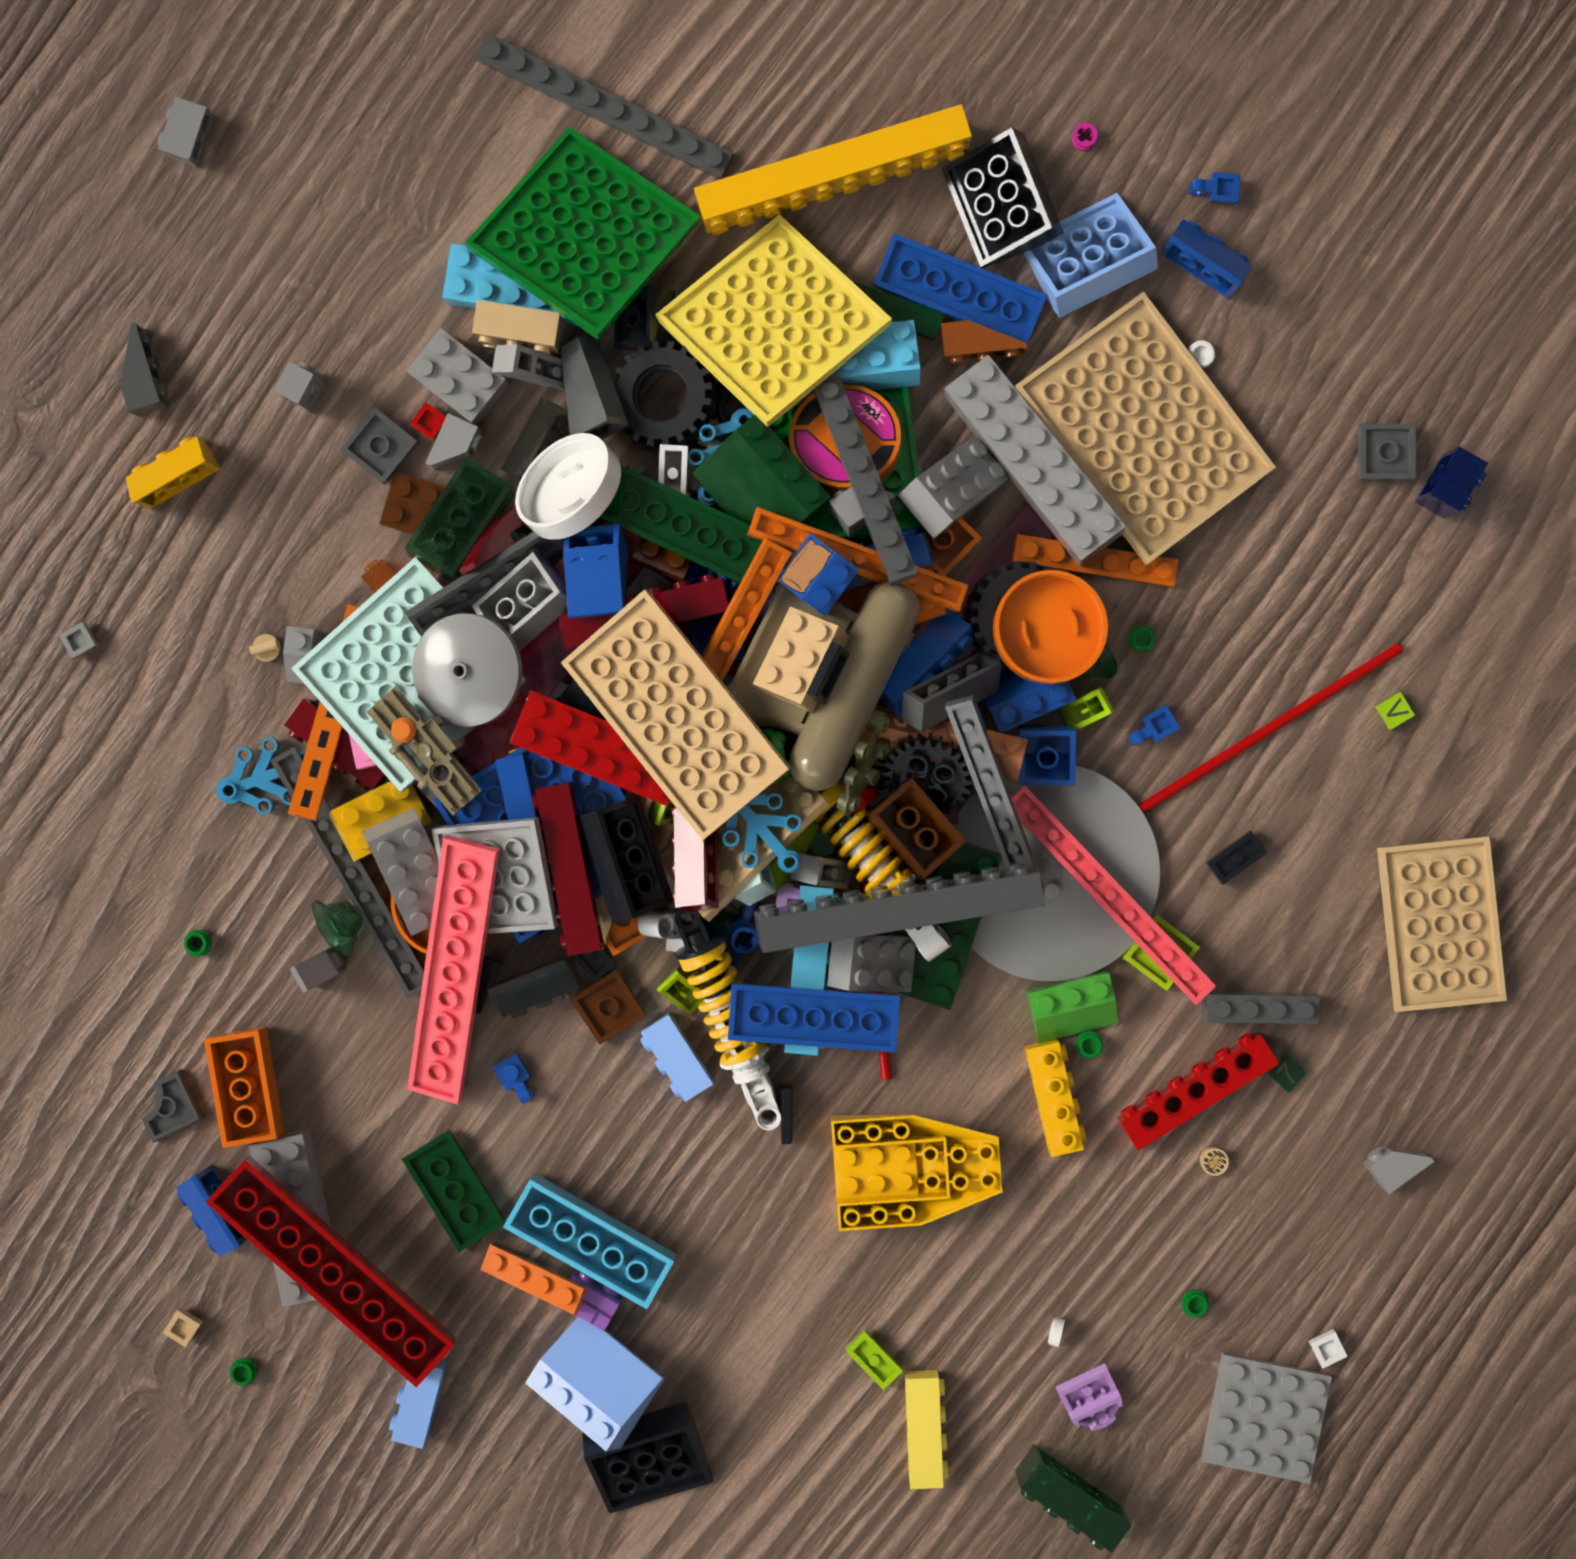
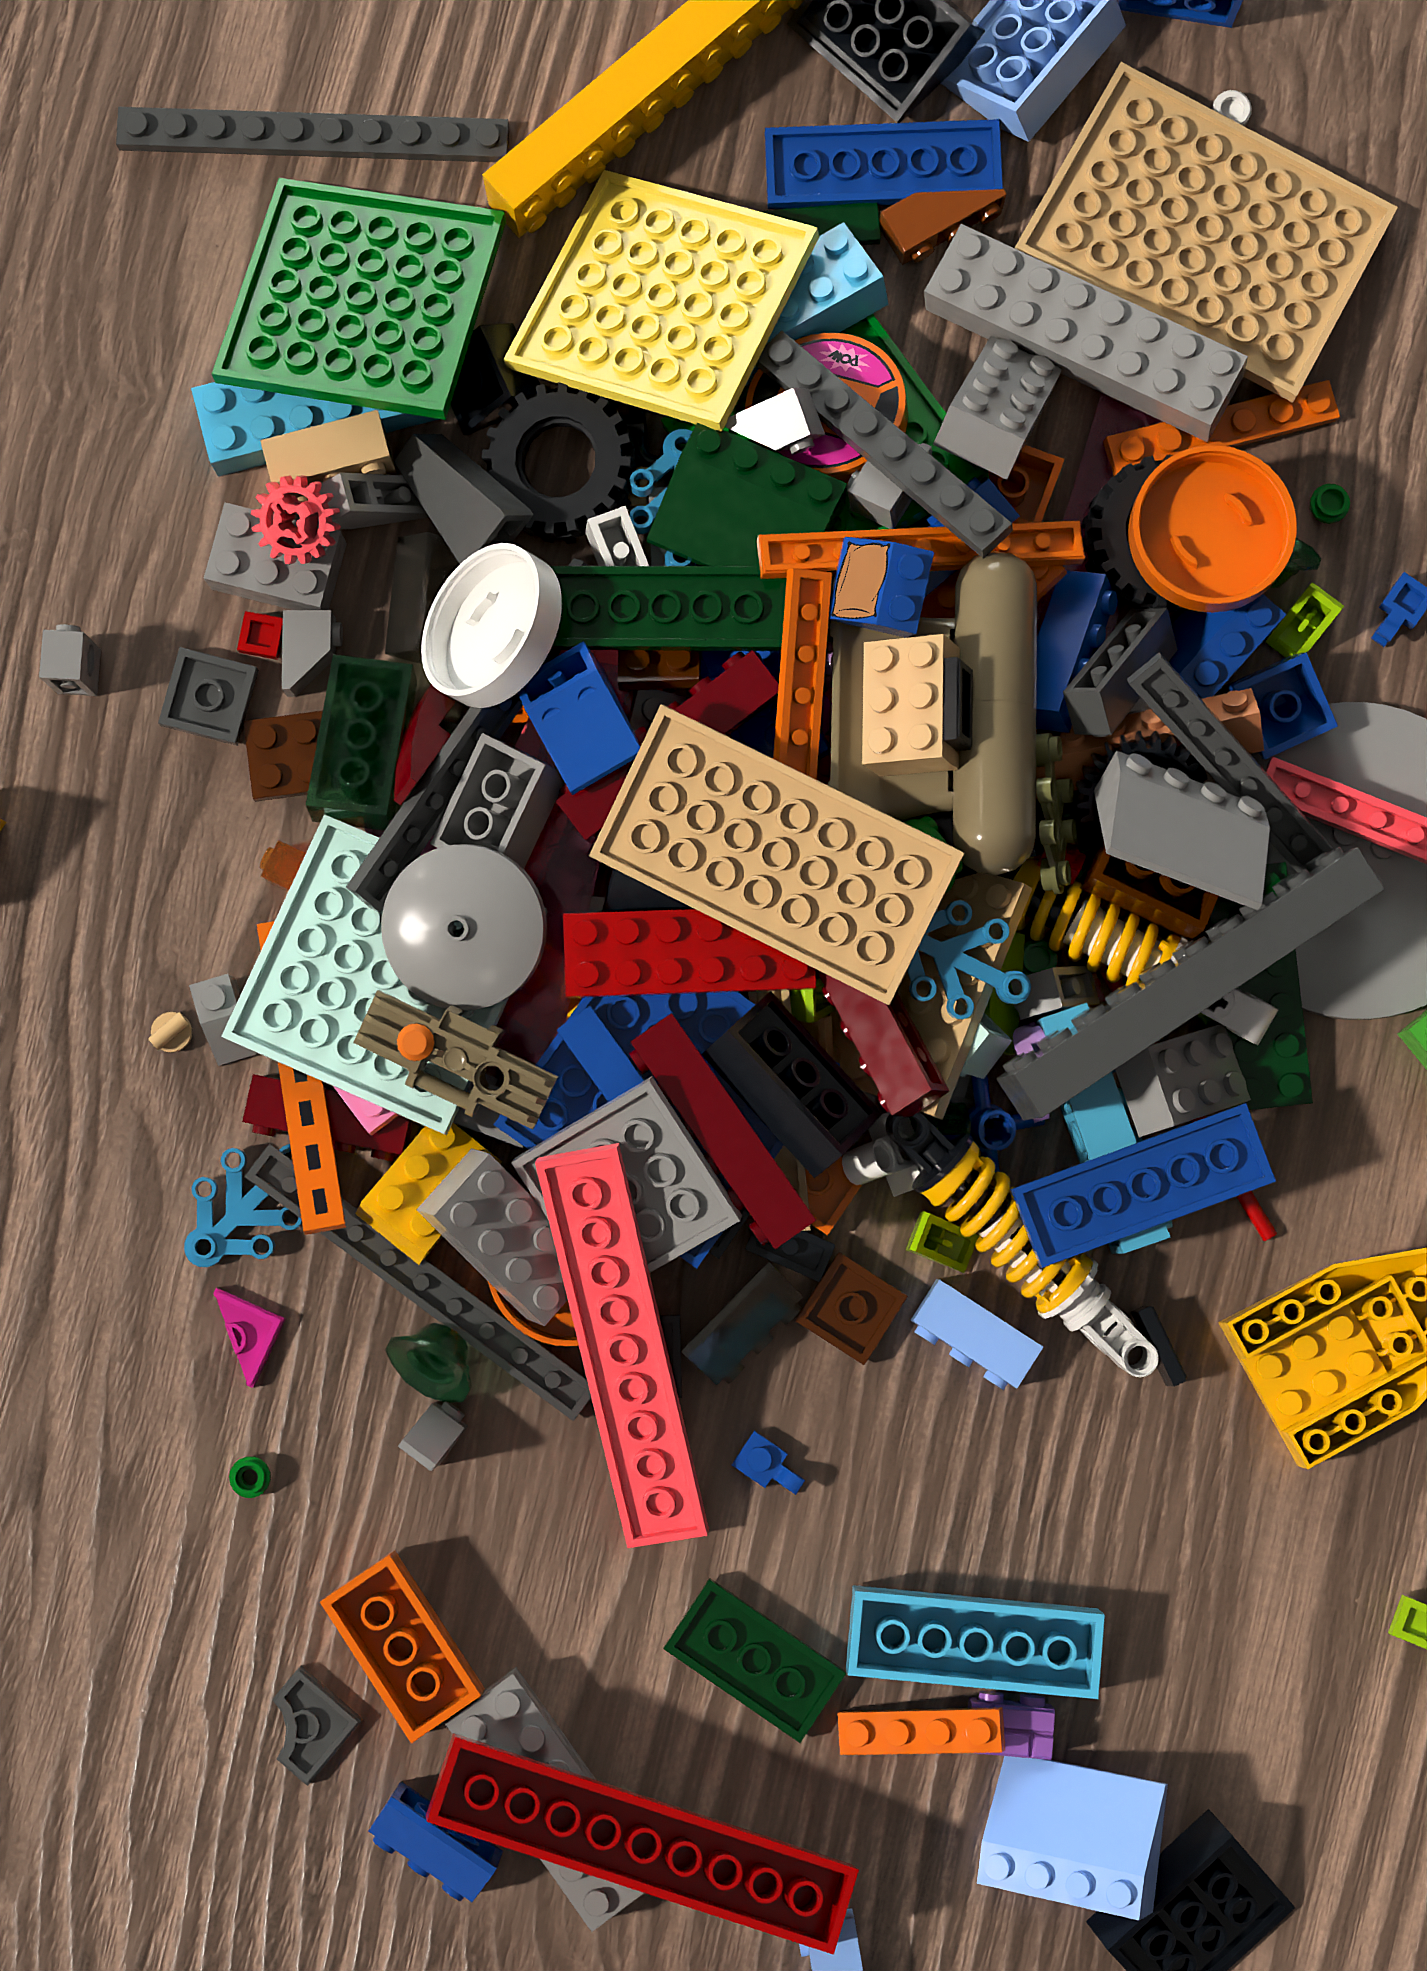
camera: 25 degrees left, 5 degrees down
(236, 854) = (250, 1332): none -> dark pink tile
(472, 348) = (284, 511): none -> coral gear
(807, 438) = (781, 422): none -> slope
(937, 812) = (1184, 828): none -> light grey slope

